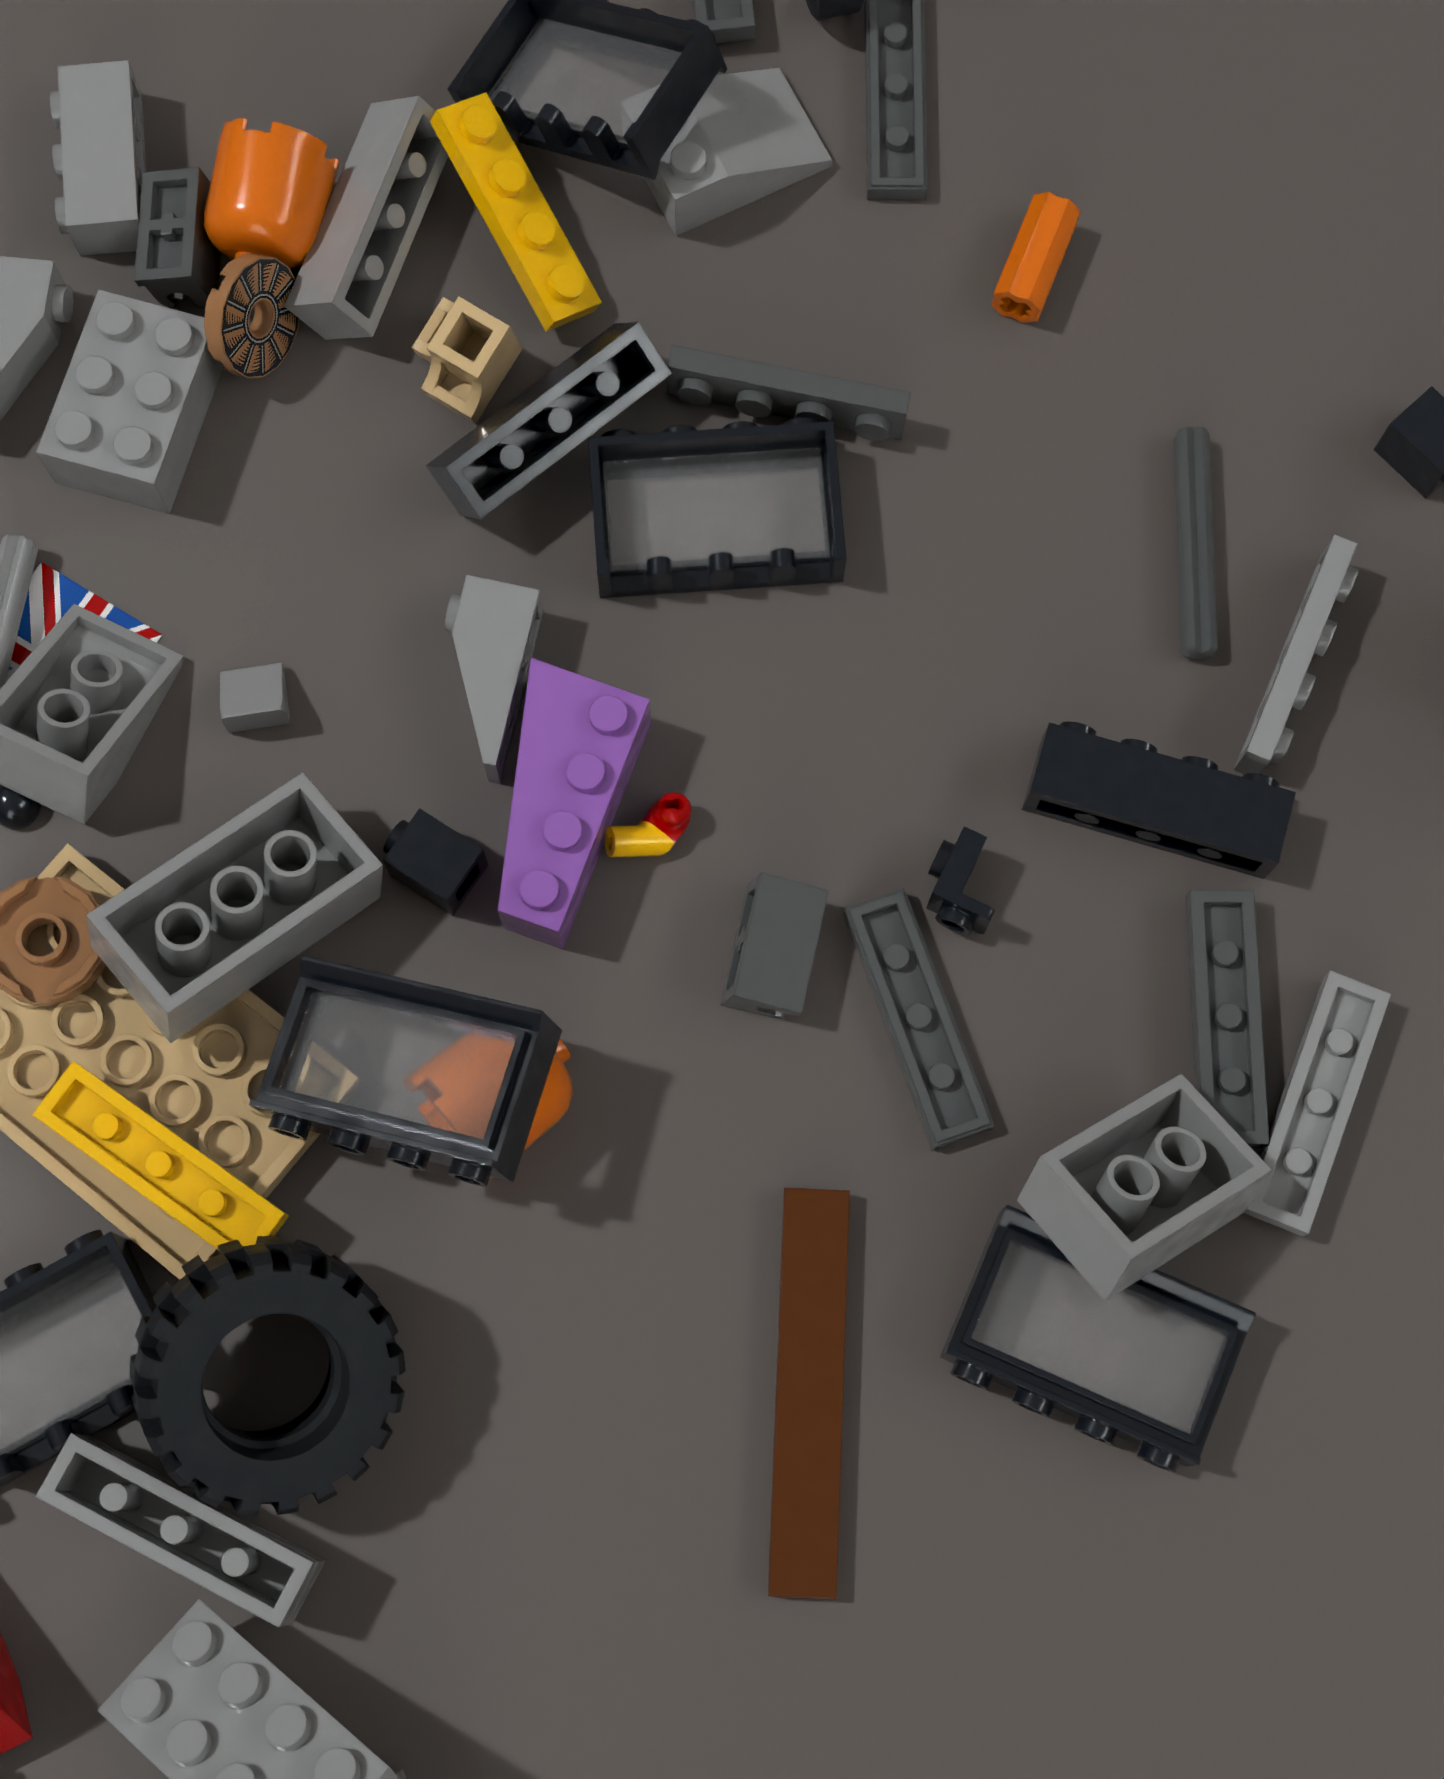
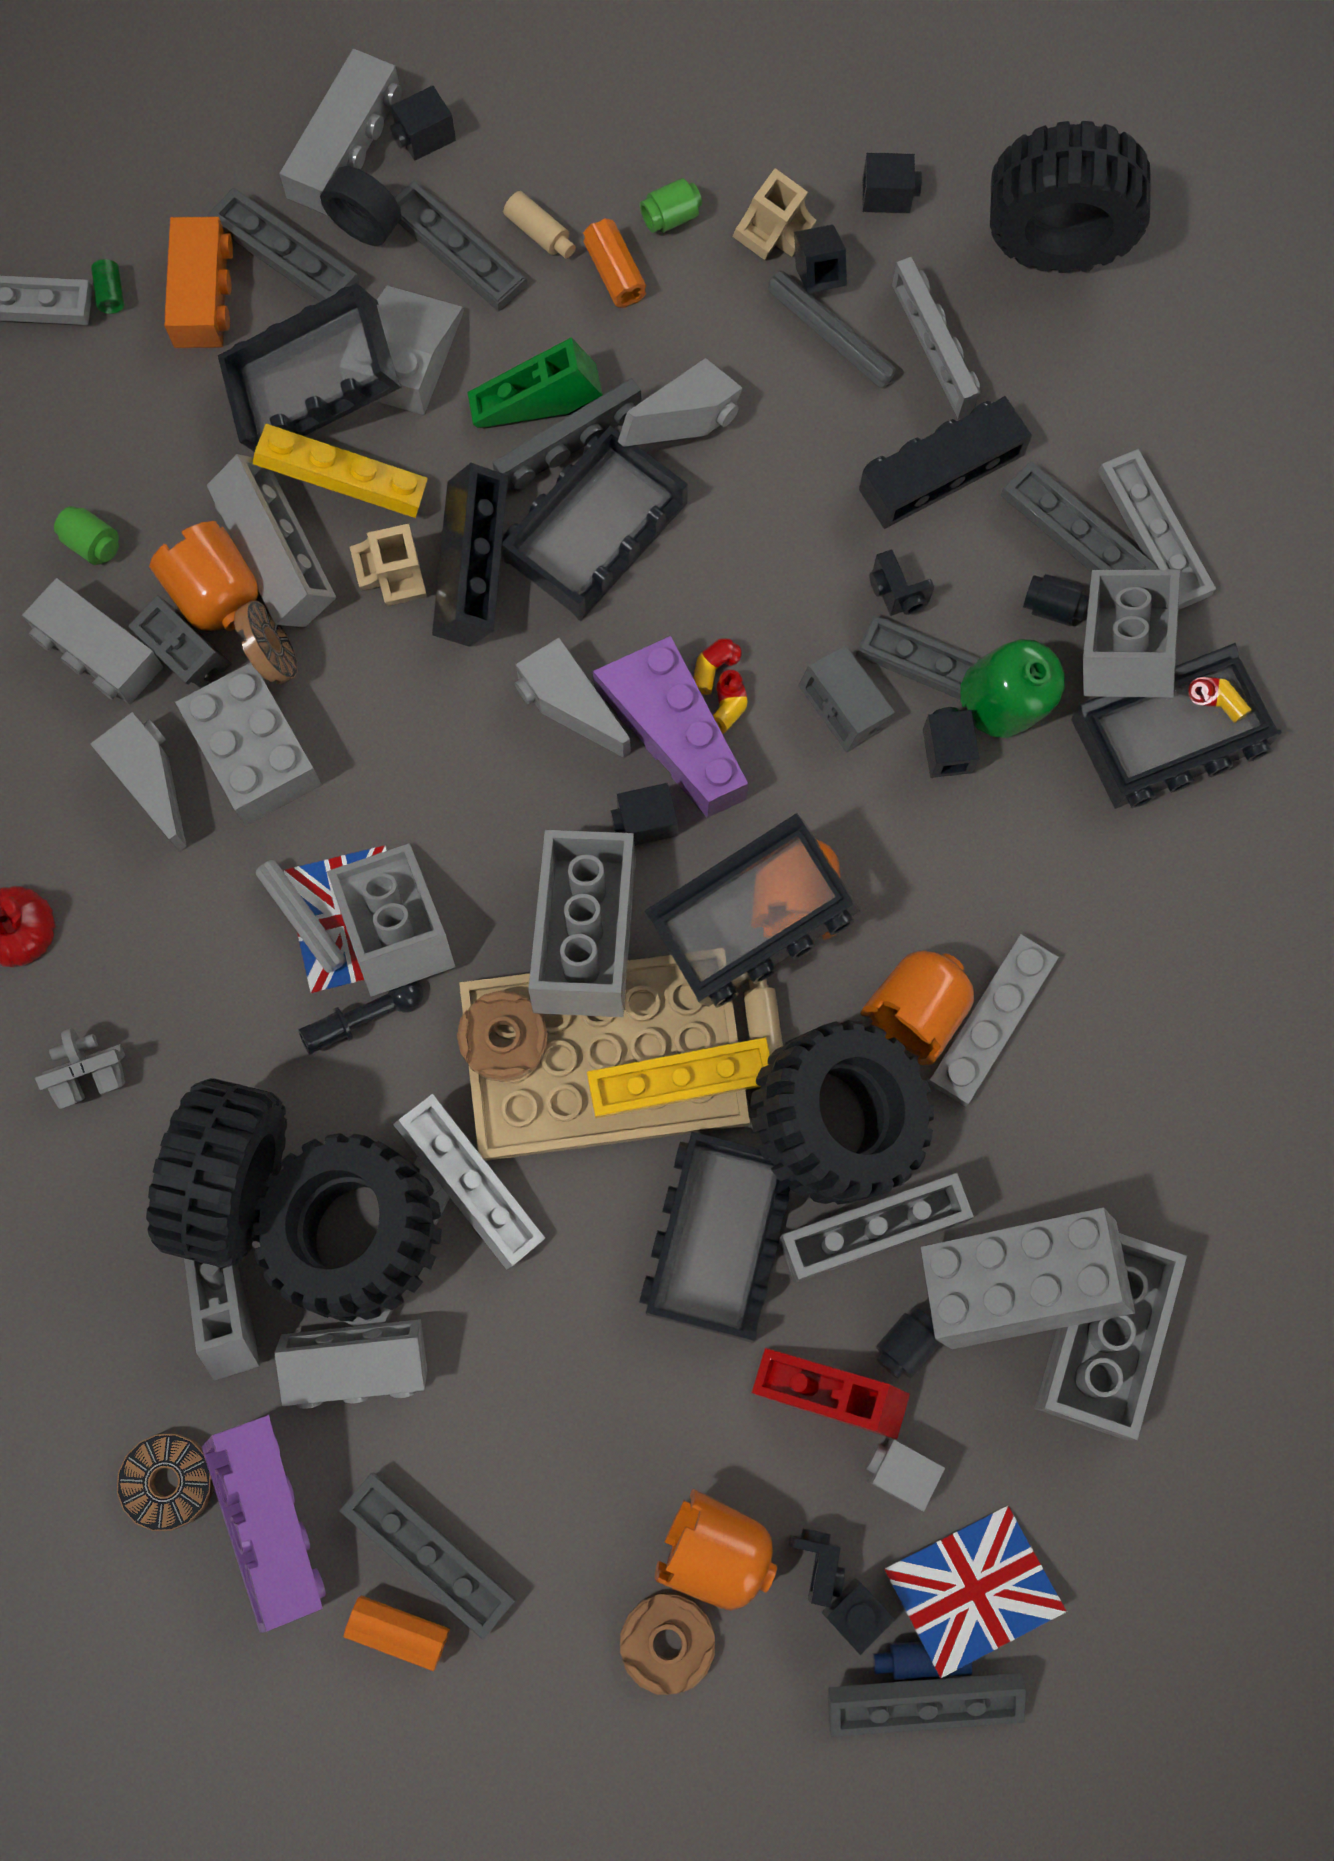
camera: 45 degrees left, 0 degrees up
(81, 1682) = (908, 1344): none -> black brick
(213, 47) = (86, 535): none -> bright green brick
(253, 698) = (468, 827): light grey slope -> none
(322, 1194) = (763, 1014): none -> tan cylinder
(489, 1347) = (922, 1003): none -> orange cylinder
(555, 1444) = (993, 1020): none -> light grey plate
(680, 767) = (712, 658): none -> arm
(809, 1394) = (1078, 881): reddish brown tile -> none
(815, 315) = (538, 388): none -> green slope
(827, 1103) = (950, 742): none -> black brick
(925, 1107) = (1013, 687): none -> green cylinder
(933, 475) = (684, 407): none -> light grey slope
(1001, 145) = (538, 225): none -> tan cylinder
(1115, 1063) = (1055, 599): none -> black brick
(1161, 251) = (671, 205): none -> bright green brick
(1174, 1349) = (1219, 693): none -> arm
(1258, 454) = (820, 258): none -> black brick
(1260, 365) = (774, 216): none -> tan brick

